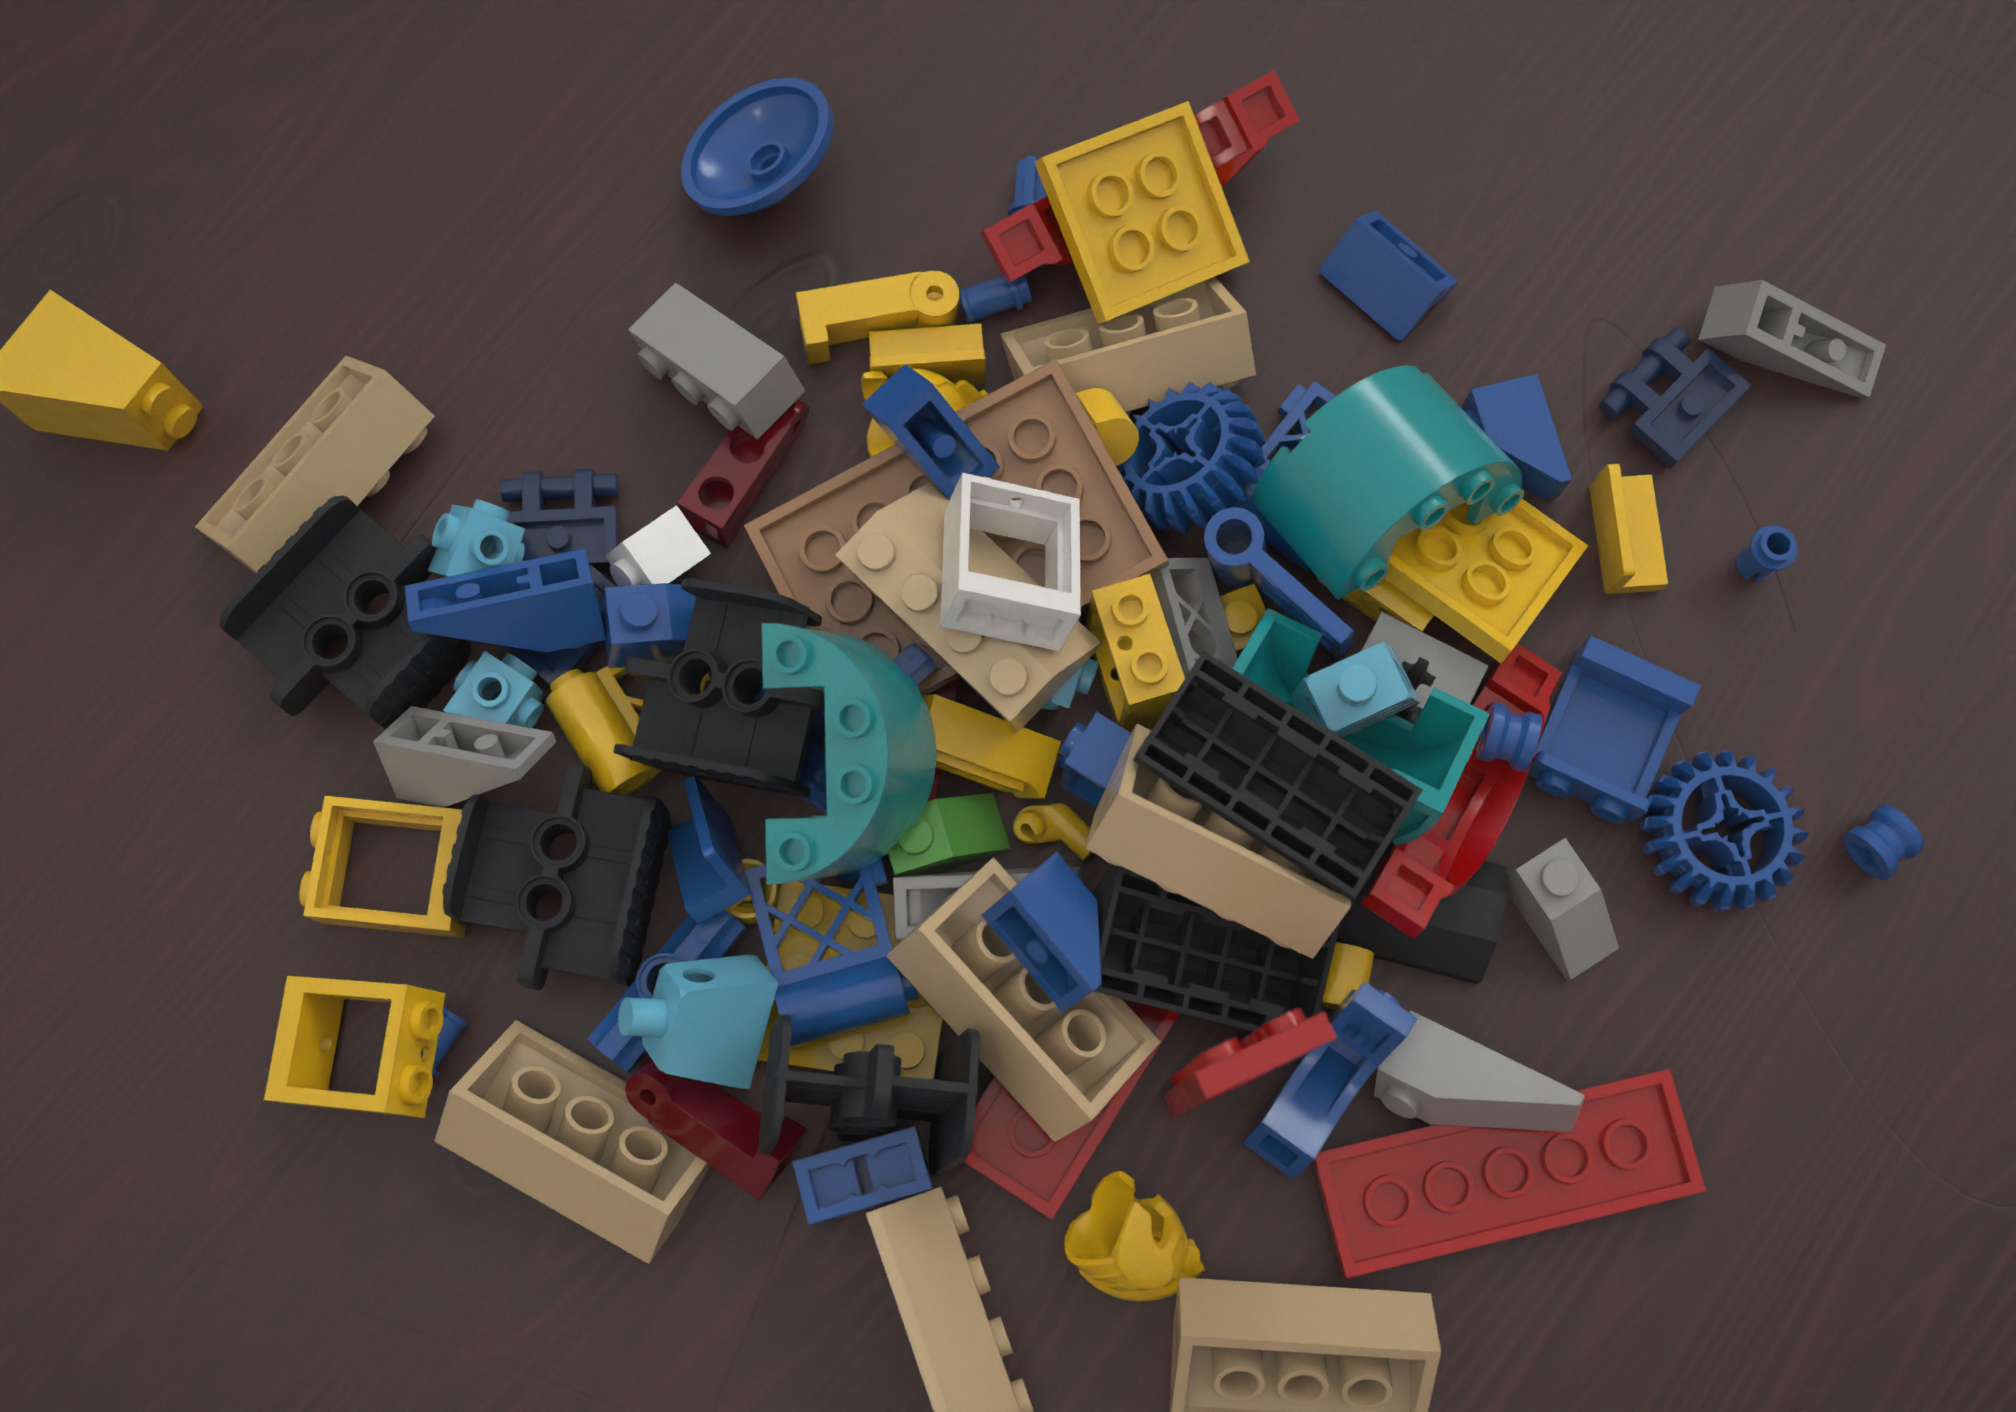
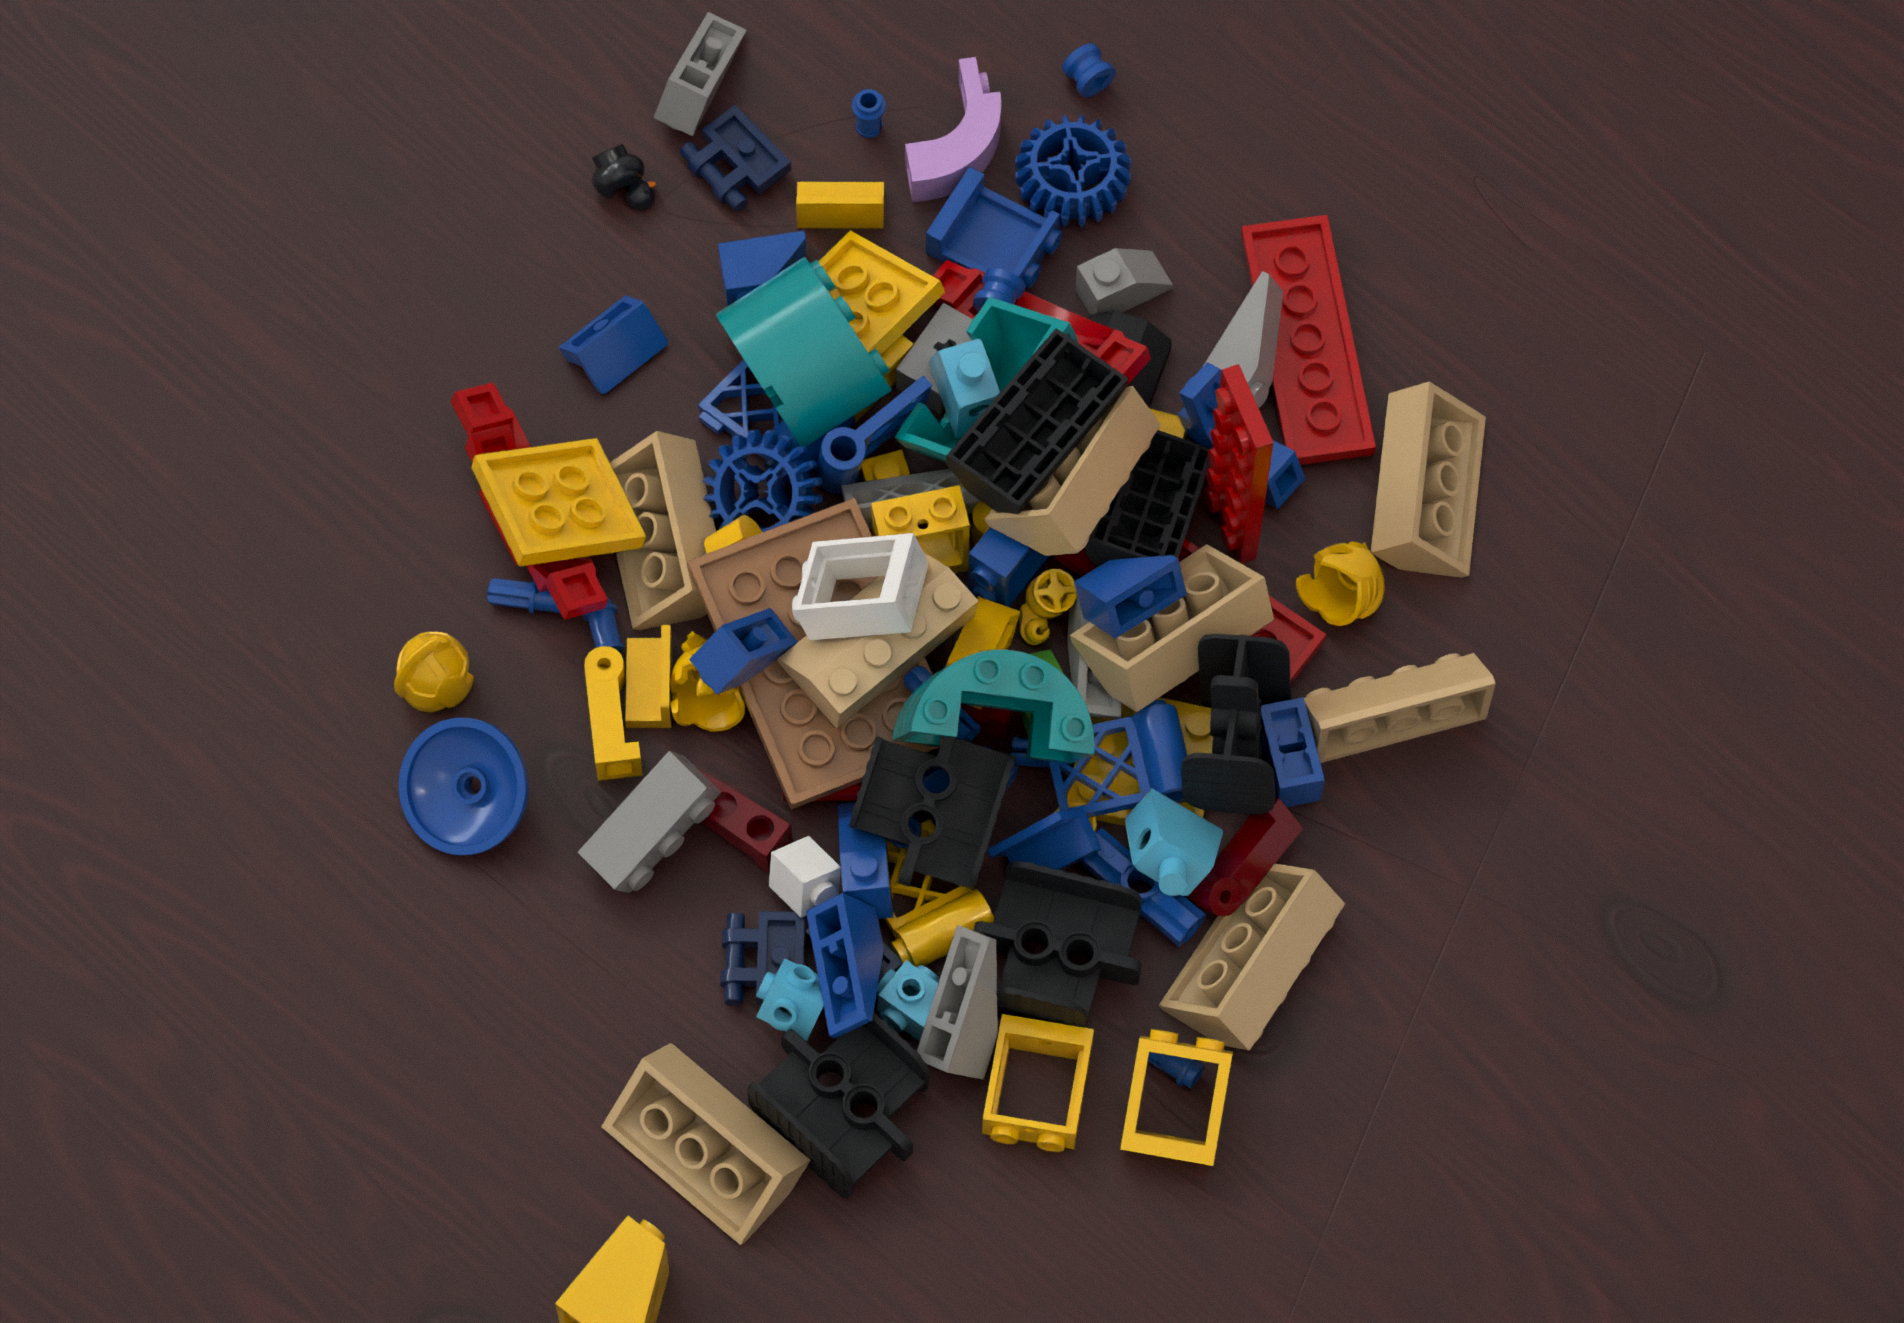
camera: 85 degrees left, 10 degrees down
(913, 100) = (433, 672): none -> yellow helmet
(1060, 836) = (1060, 591): none -> yellow wheel
(1632, 253) = (619, 169): none -> black animal
(1737, 690) = (940, 163): none -> lavender arch

